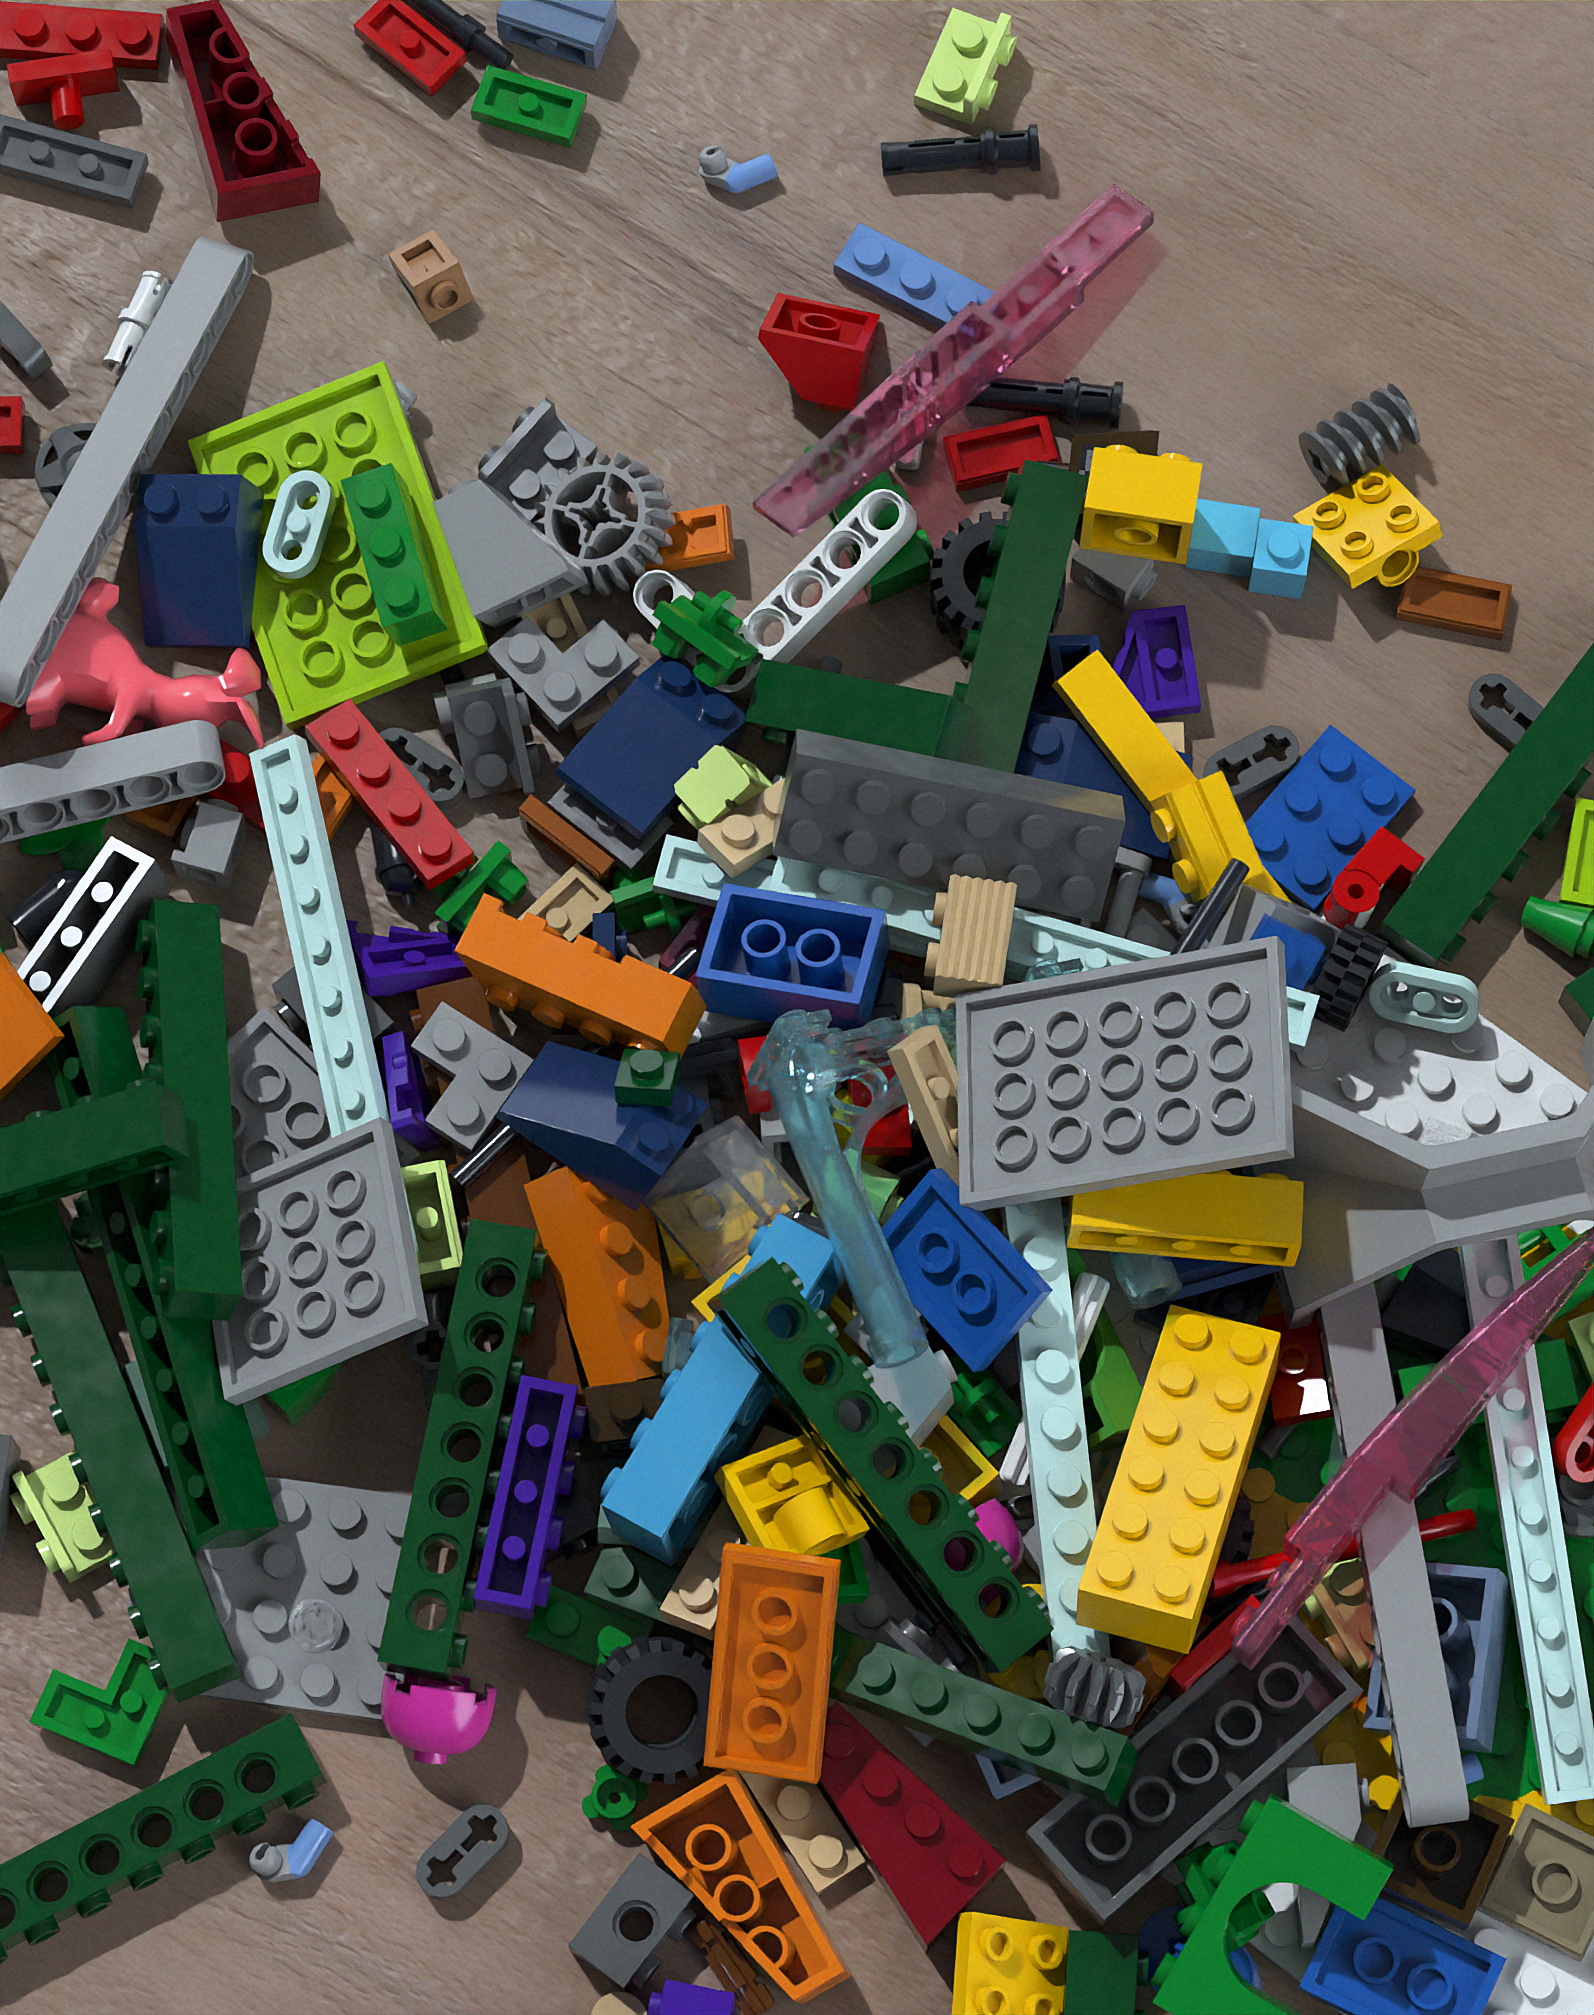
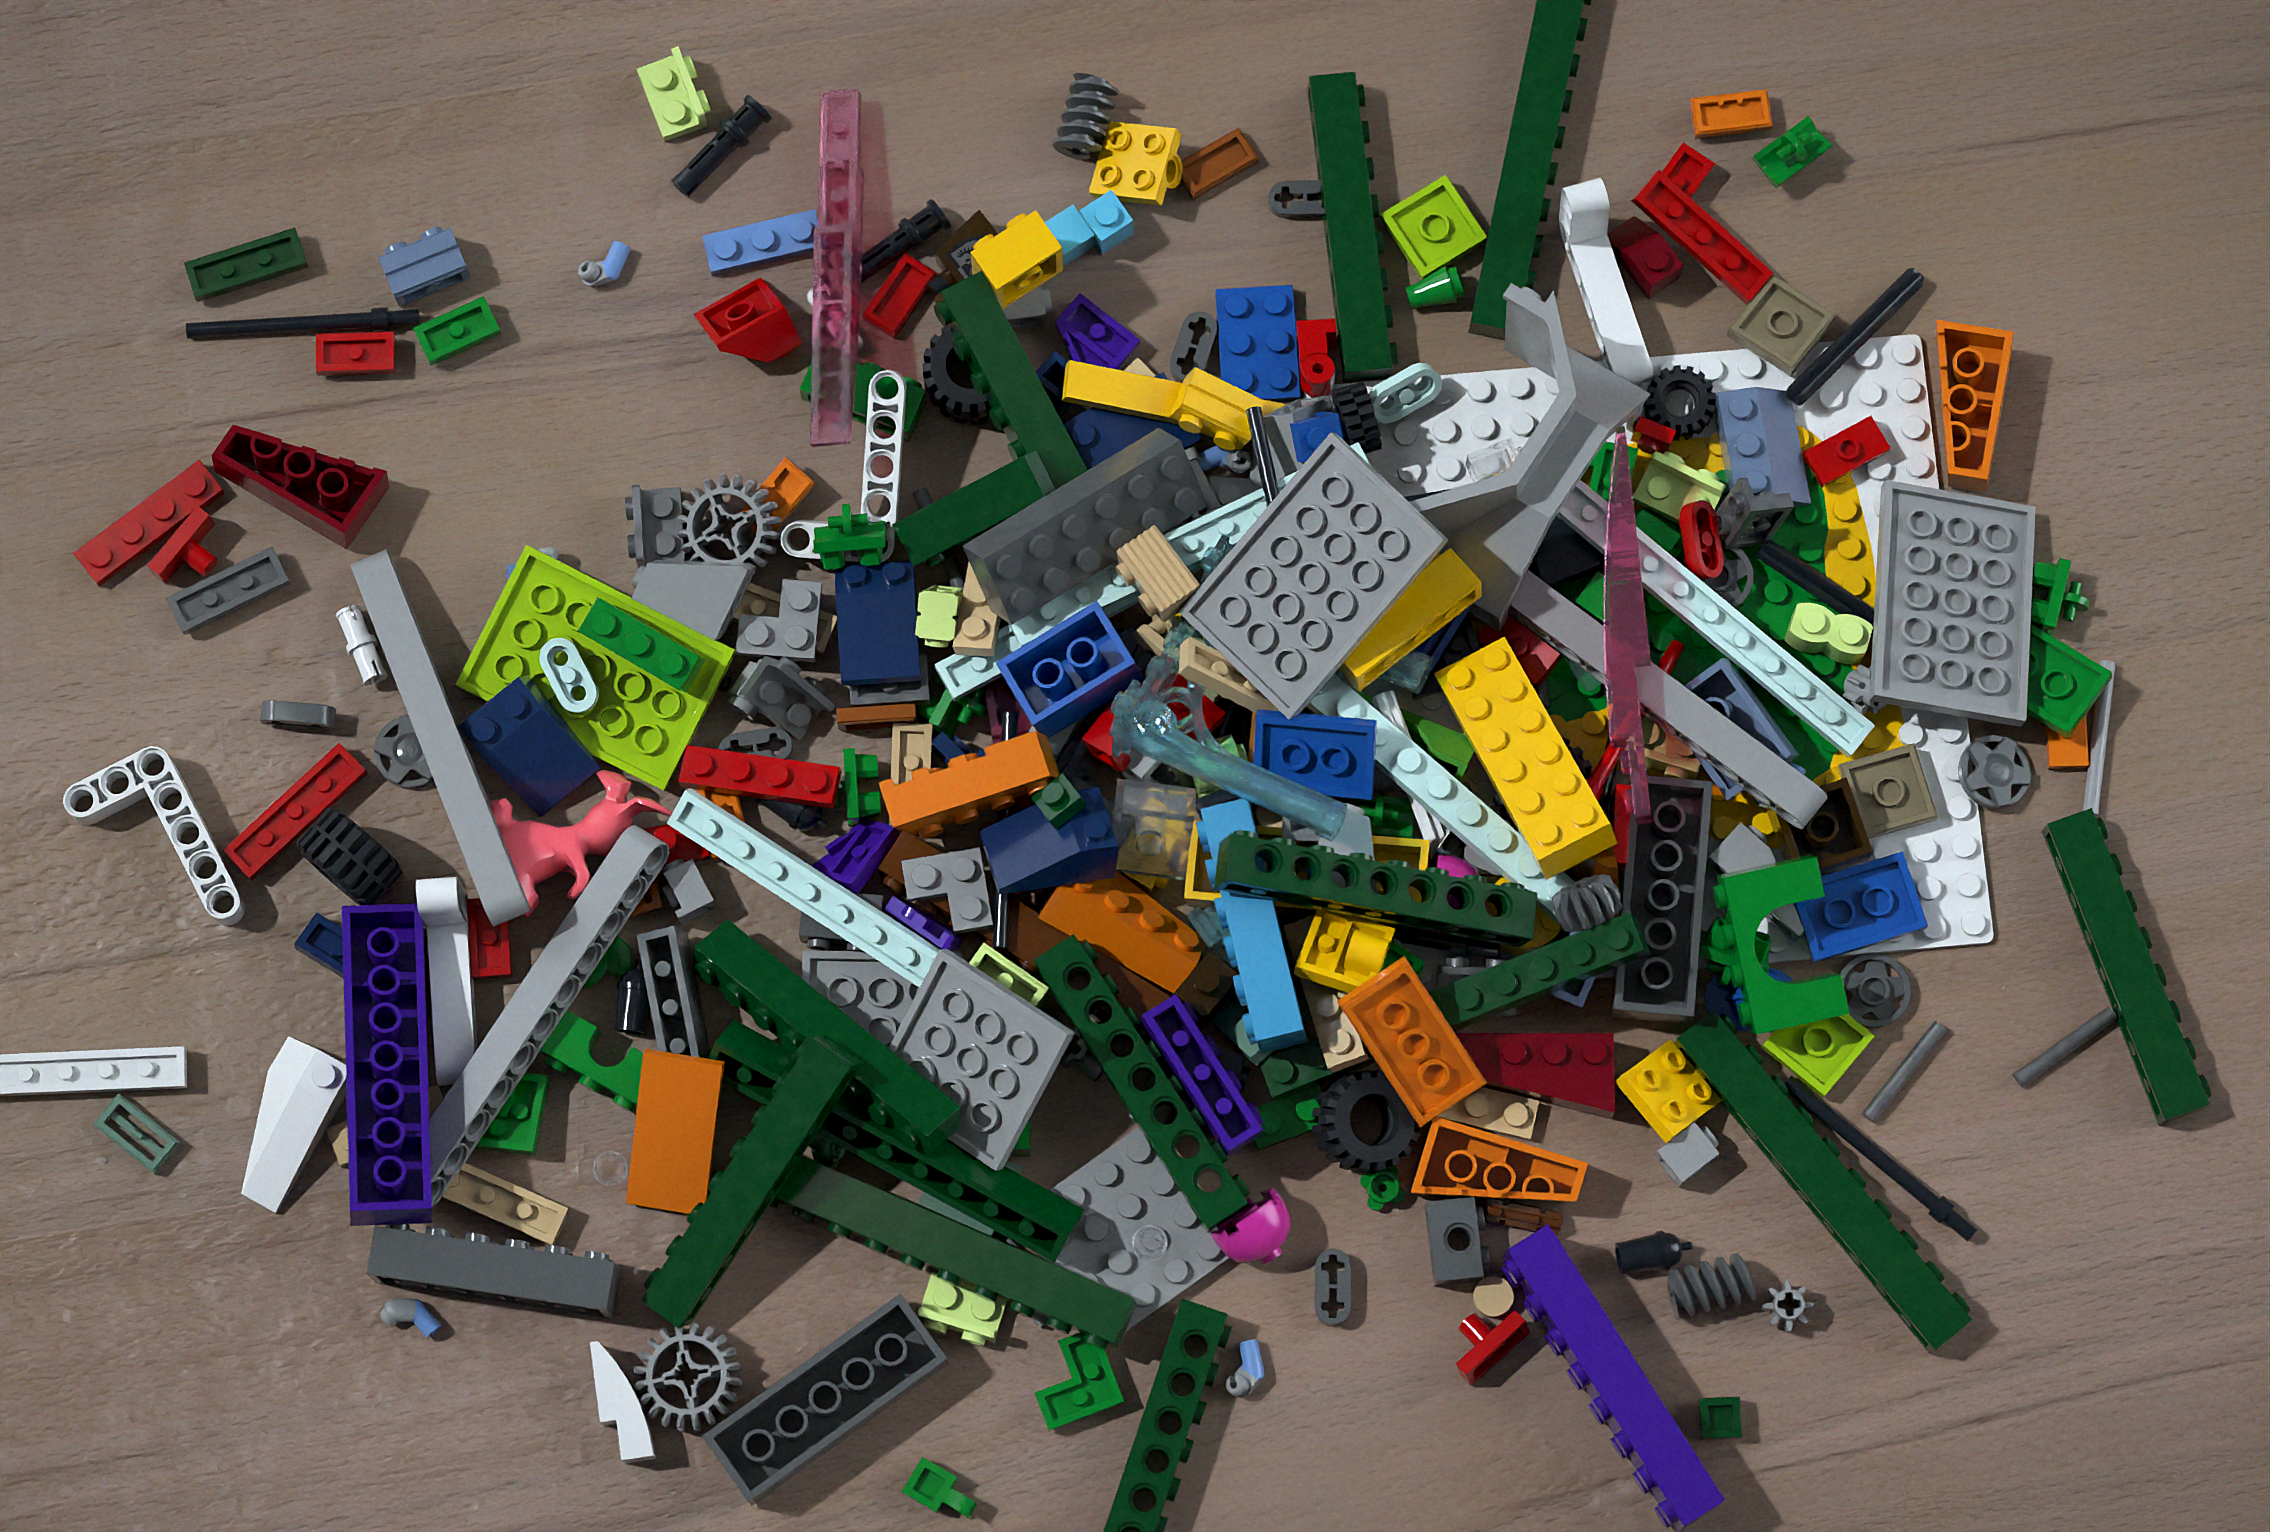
camera: 45 degrees left, 5 degrees up
(432, 275) = (496, 473): medium nougat bracket -> none

